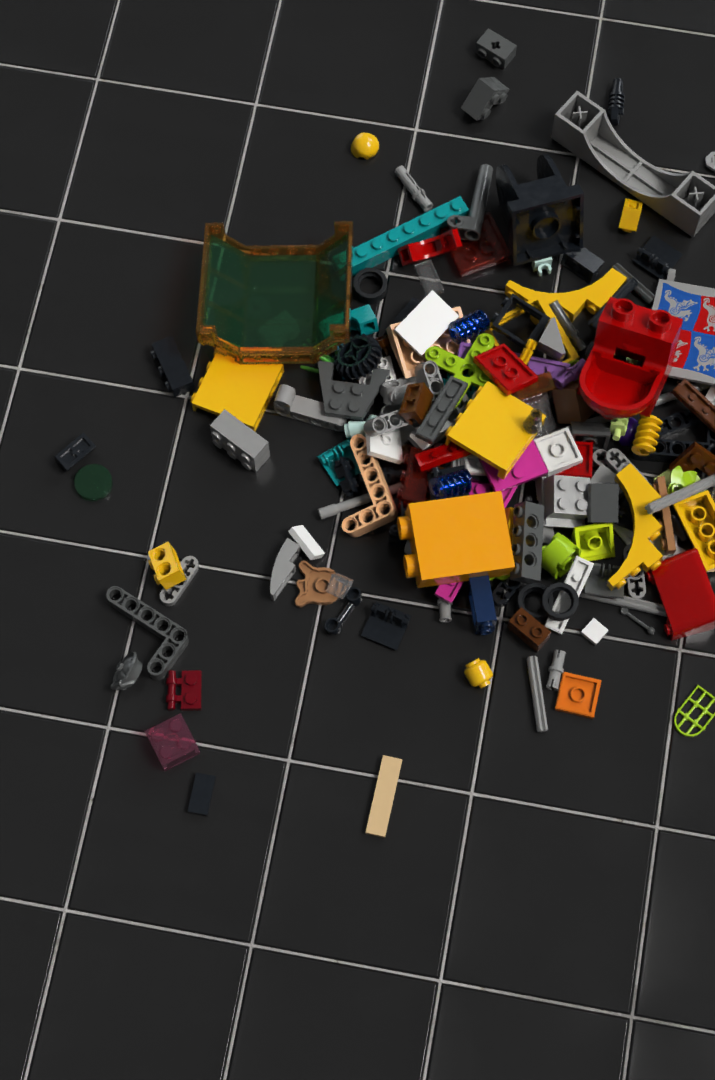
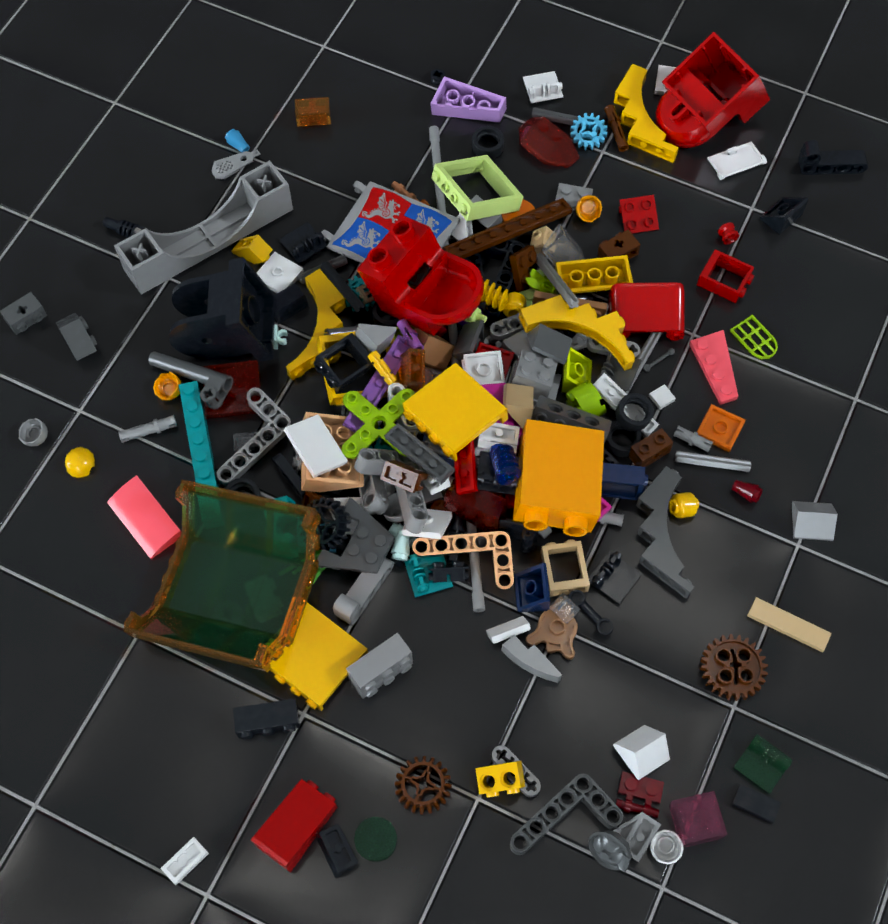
camera: 75 degrees left, 5 degrees down
(40, 341) = (184, 860): none -> white plate
(87, 412) = (295, 824): none -> red slope
(131, 503) = (413, 781): none -> reddish brown gear
(141, 719) = (666, 847): none -> white hair
(146, 693) = (639, 833): none -> light grey wing
(223, 683) = (643, 750): none -> white slope
(240, 794) = (763, 763): none -> clear green hinge
(330, 766) = (752, 667): none -> reddish brown gear
(334, 205) = (144, 517): none -> coral slope
(352, 555) = (532, 589): none -> dark blue slope
(379, 99) = (33, 432): none -> light grey hair
(383, 594) = (565, 587): none -> tan window
(420, 660) = (660, 555): none -> dark grey arch
(427, 281) = (257, 441): none -> light grey beam
(430, 248) = (223, 426): red arch -> none
(459, 187) = (167, 386): none -> light orange hair
(468, 326) = (333, 409): clear blue piece -> none
(482, 476) = (498, 434): none -> white plate
(502, 802) = (813, 520): none -> light grey slope
(505, 369) = (393, 385): red tile -> none
(513, 733) = (748, 490): none -> dark red cone
(527, 486) = (519, 402): none -> tan slope
(533, 422) = (464, 371): clear smoke cone -> none
(614, 246) = (279, 272): none -> white plate
(650, 677) = (716, 365): none -> coral wing
(651, 466) = (515, 302): none -> yellow head

